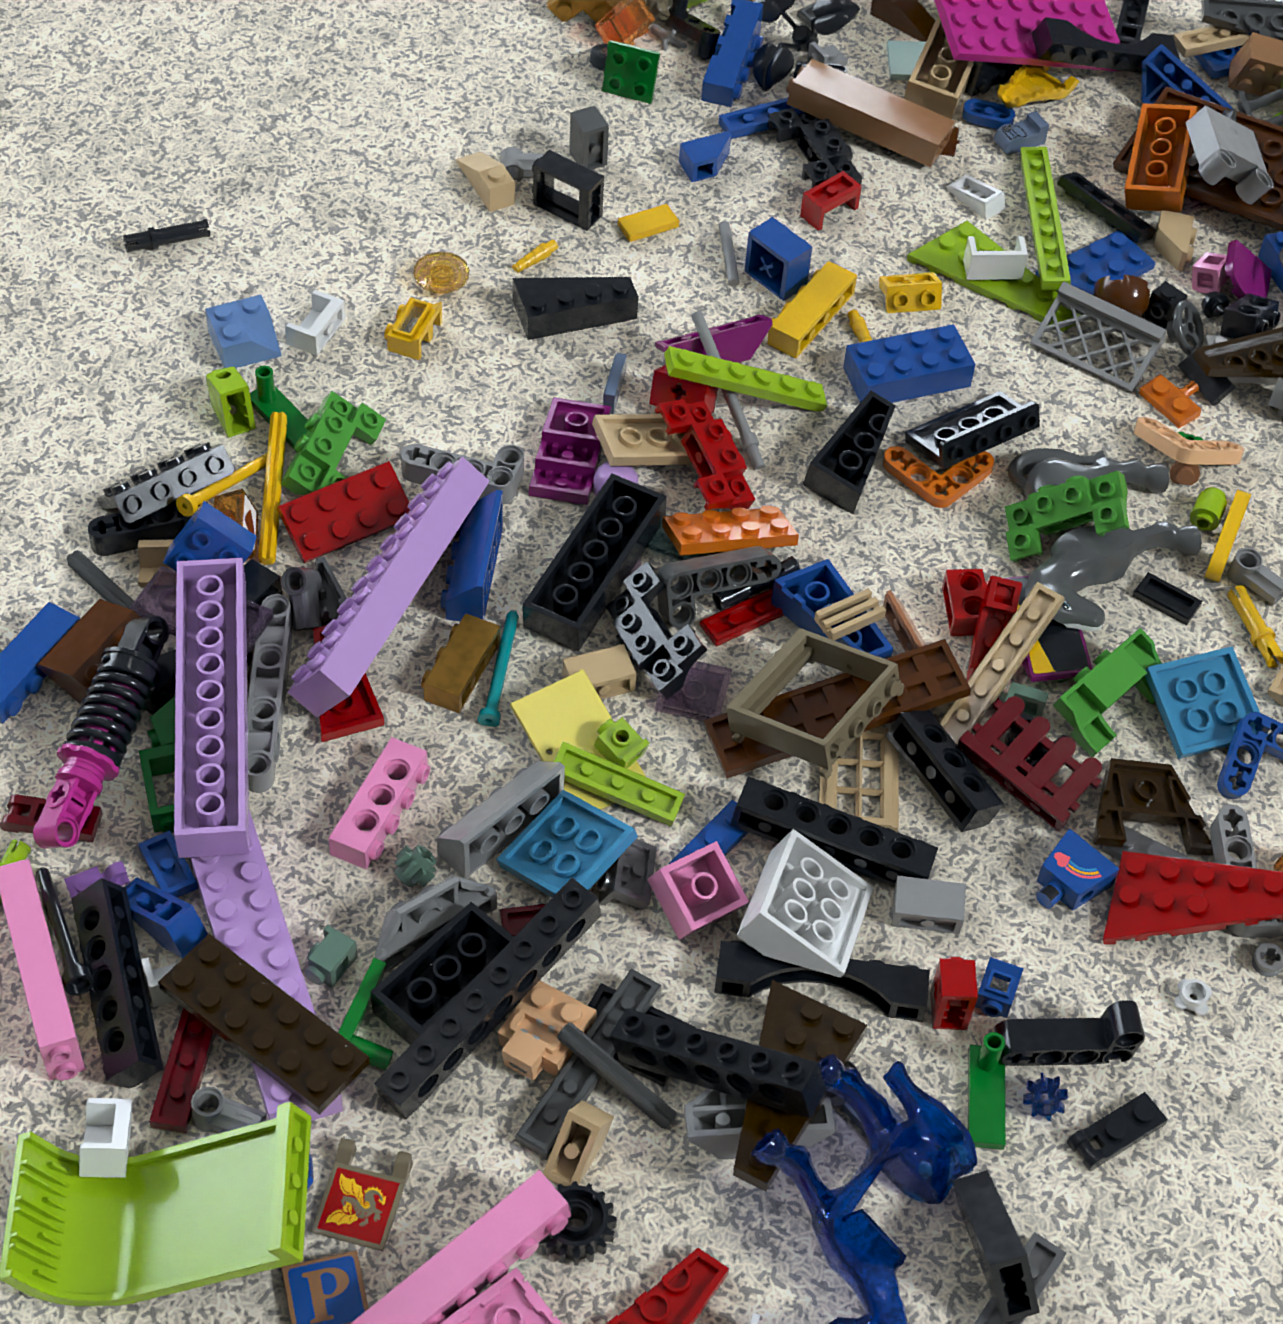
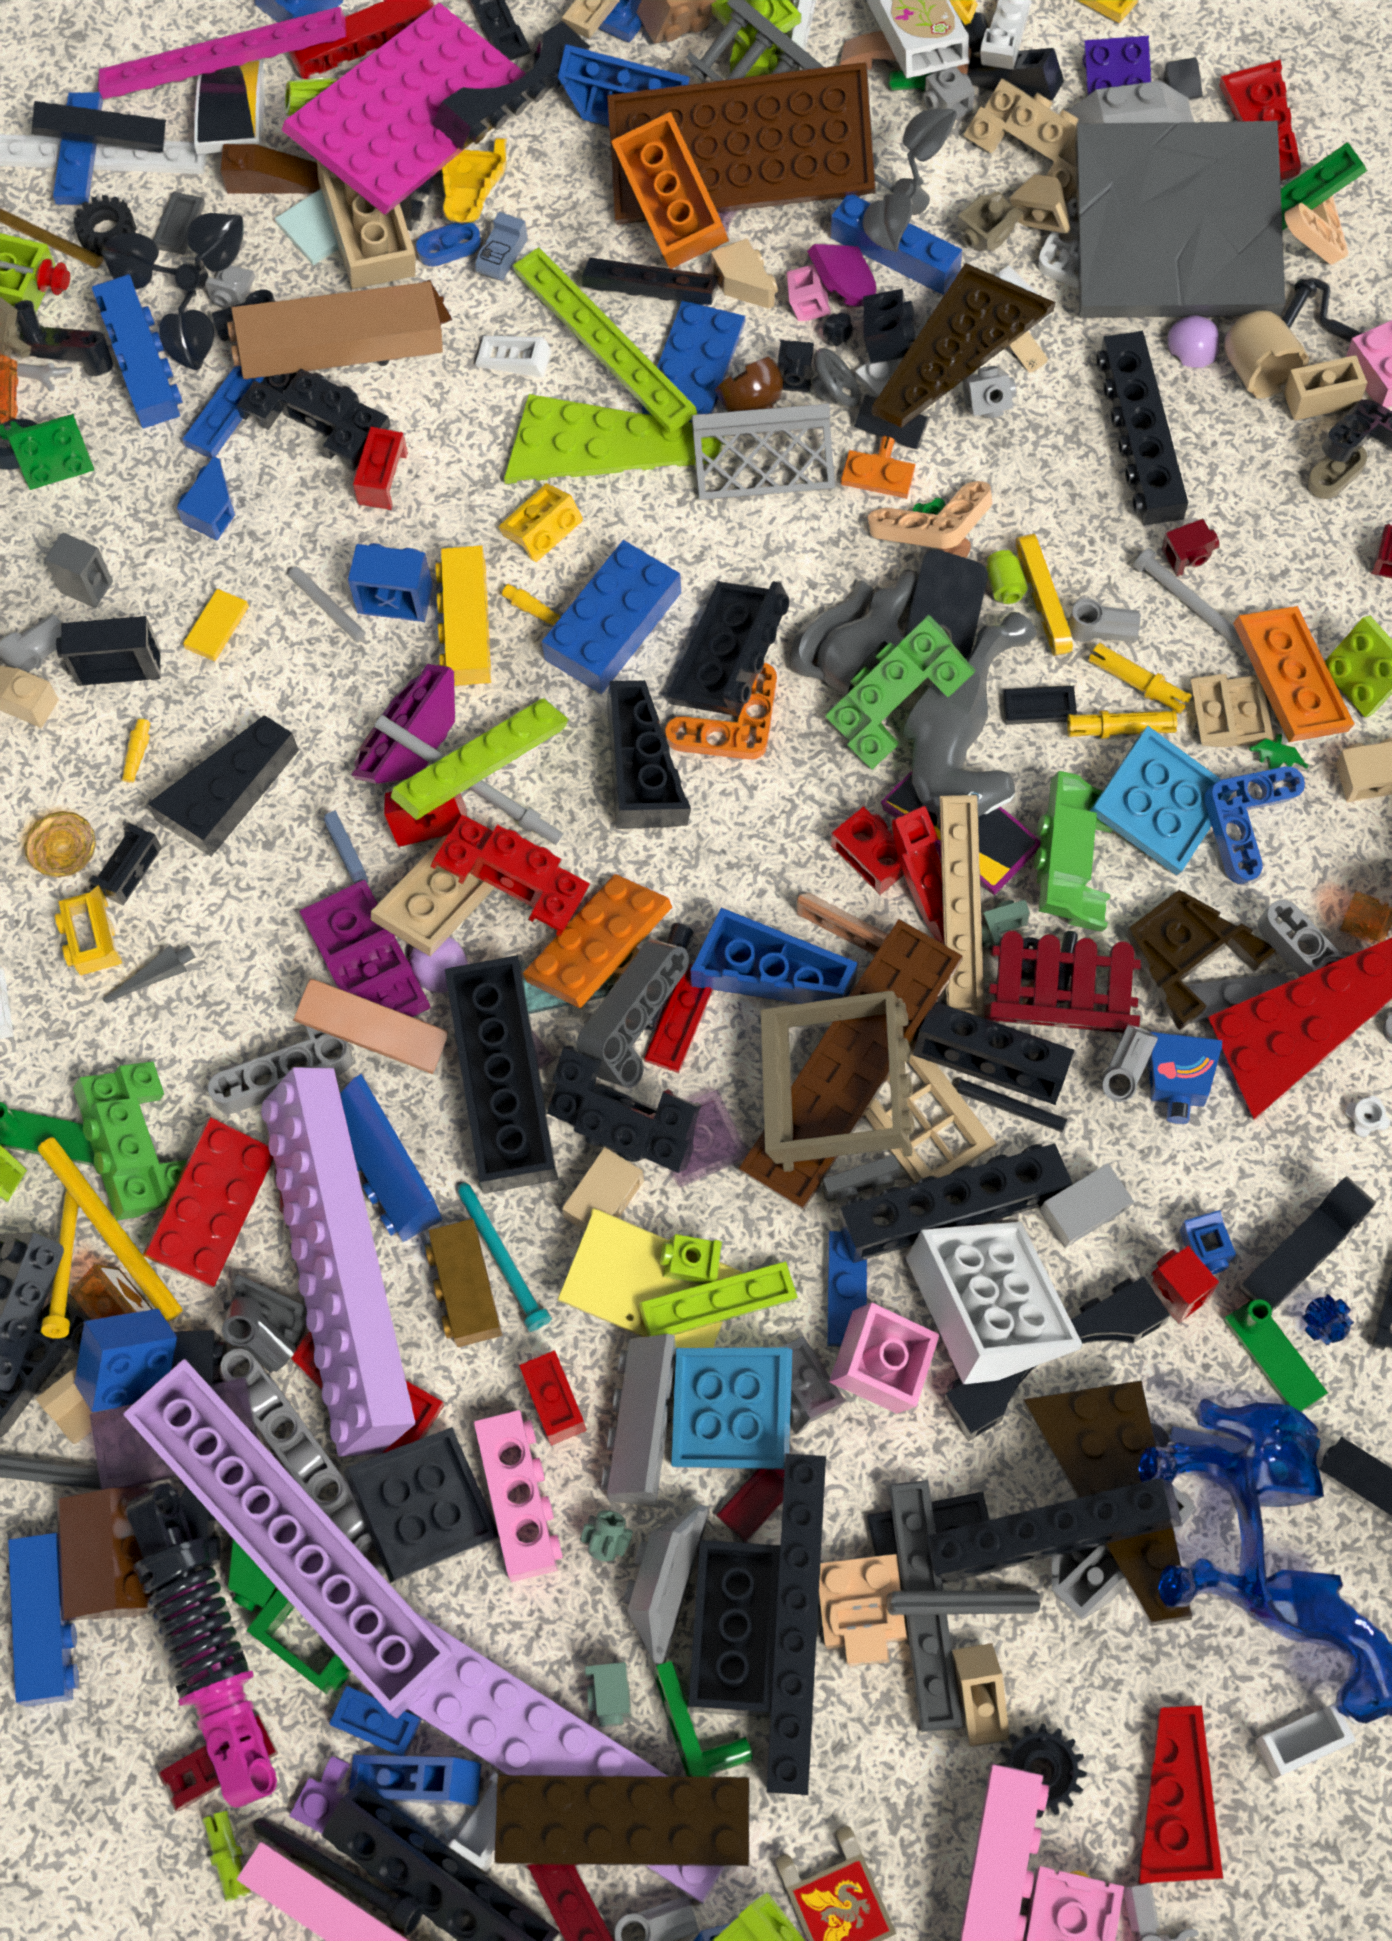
camera: 30 degrees left, 15 degrees up
(313, 758) = (421, 1504): none -> black plate
(440, 375) = (165, 965): none -> dark grey piece
(455, 763) = (553, 1397): none -> red panel
(472, 311) = (127, 864): none -> black hinge
(537, 480) = (371, 1026): none -> slope
(784, 778) = (875, 1175): none -> dark grey plate
(845, 611) = (803, 930): tan tile -> none
(930, 815) = (1011, 1105): none -> black bar
(995, 264) = (603, 432): white panel -> none
(1039, 834) = (1129, 1060): none -> light grey piece
(1158, 490) = (952, 594): none -> black piece
(1213, 641) = (1129, 723): none -> yellow pin
(1228, 151) = (741, 149): light grey piece -> none

